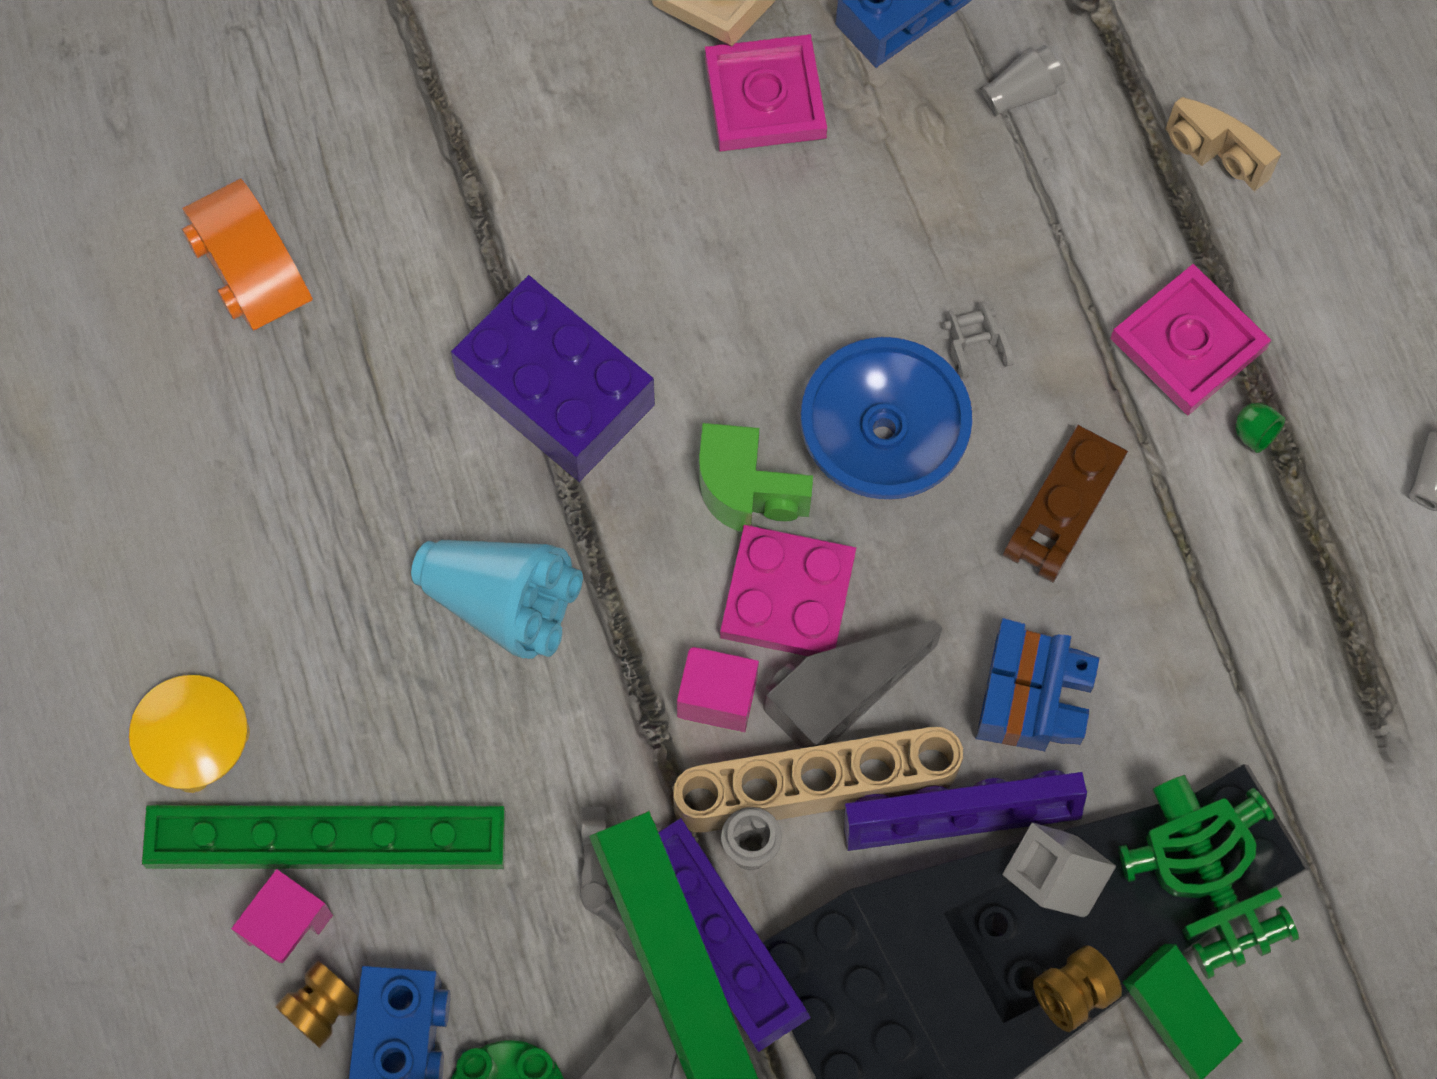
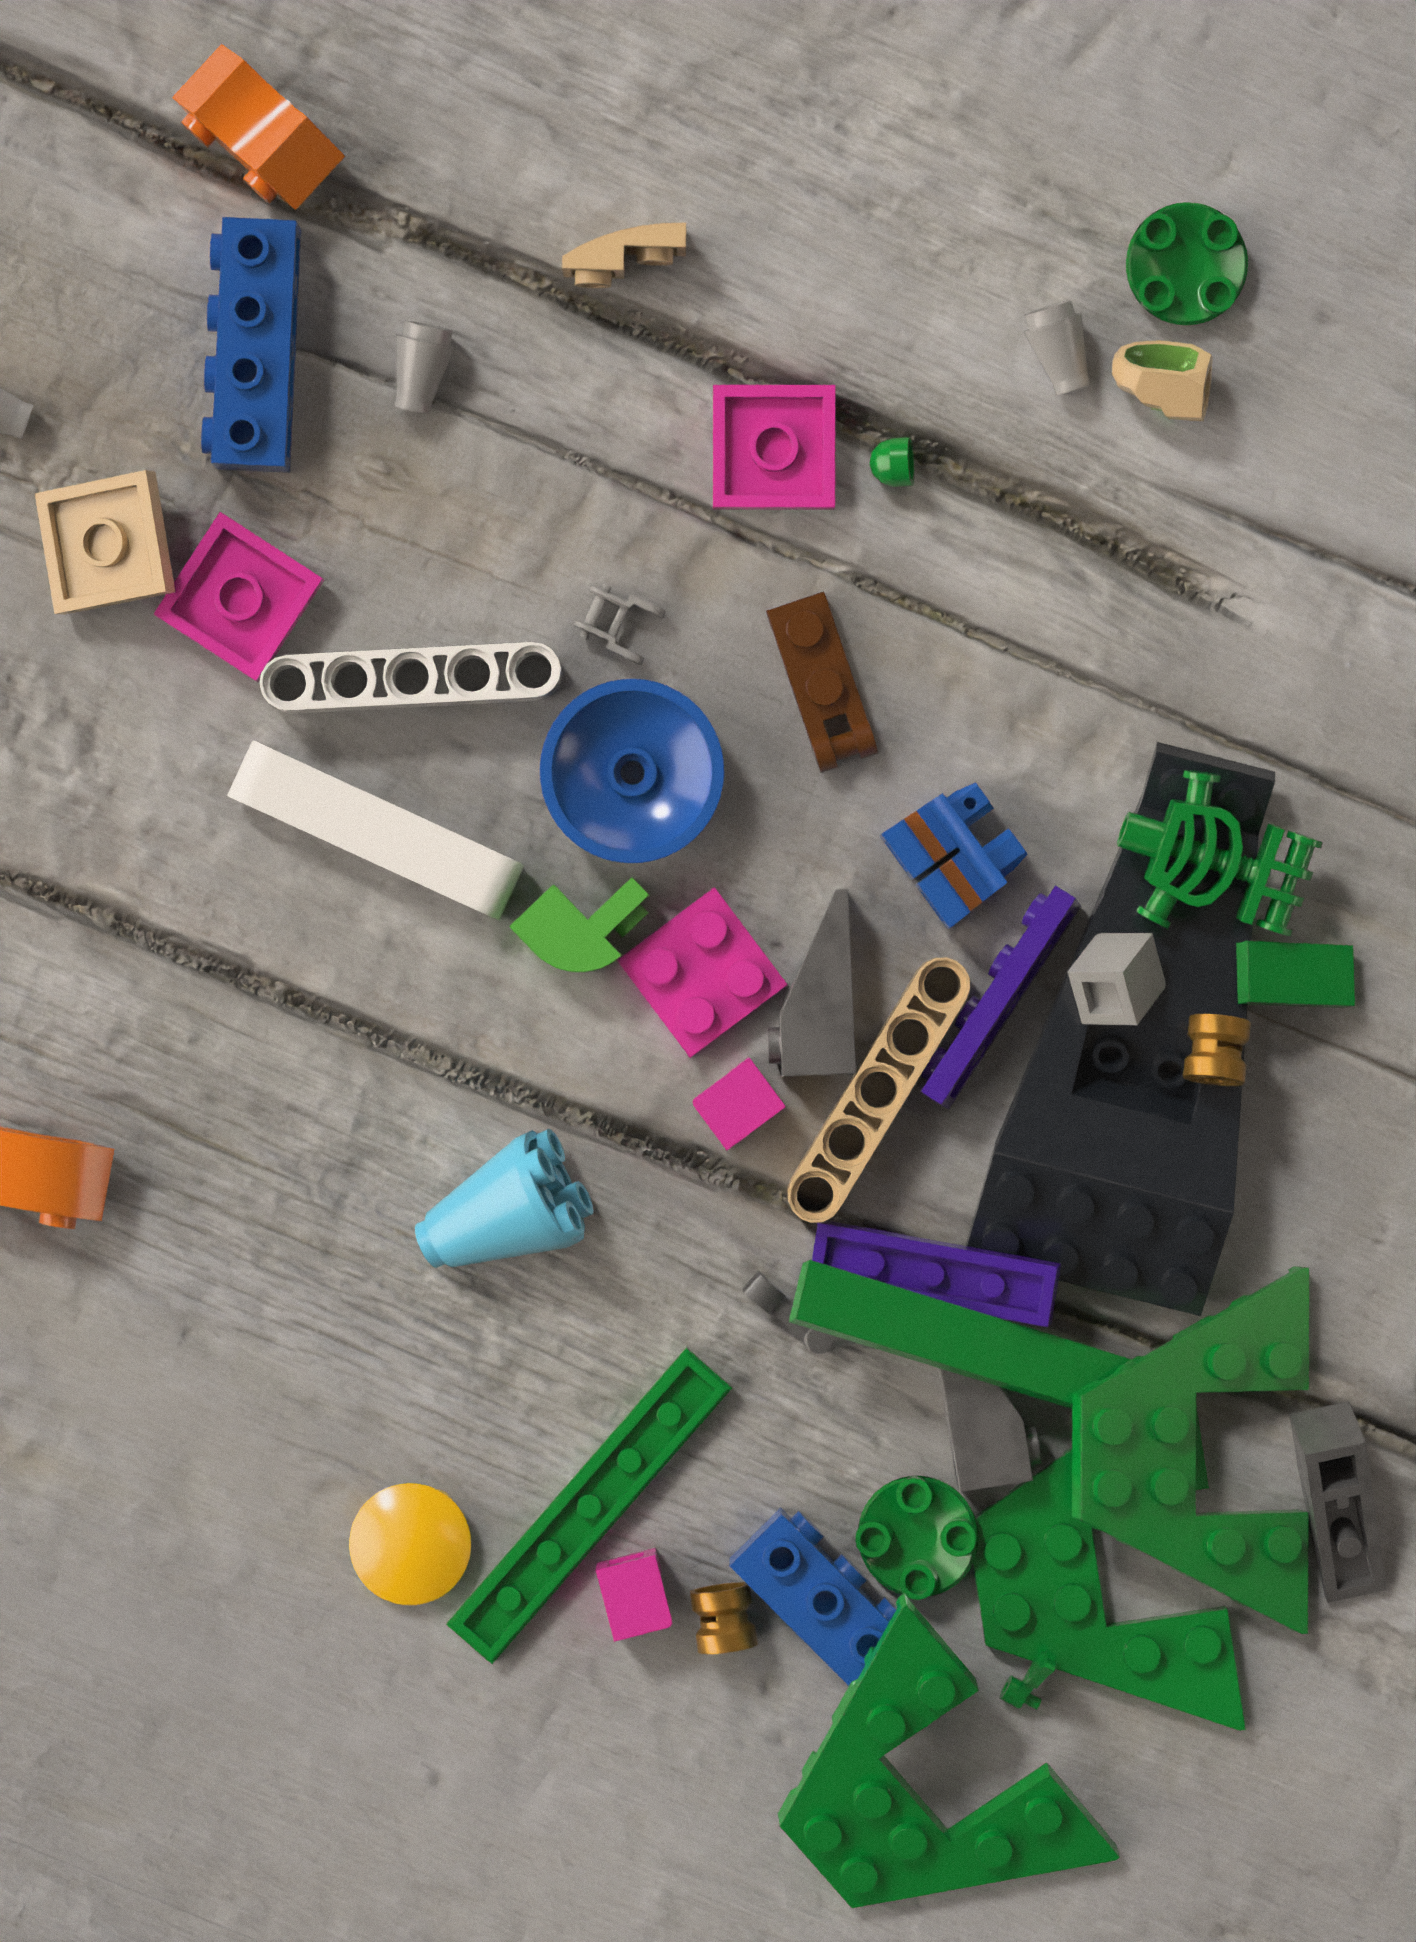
camera: 50 degrees left, 20 degrees up
(553, 378) = (356, 1008): dark purple brick -> none
(689, 298) = (375, 830): none -> white beam
(755, 826) = (899, 1201): light grey cone -> none
(805, 213) = (381, 671): none -> white beam

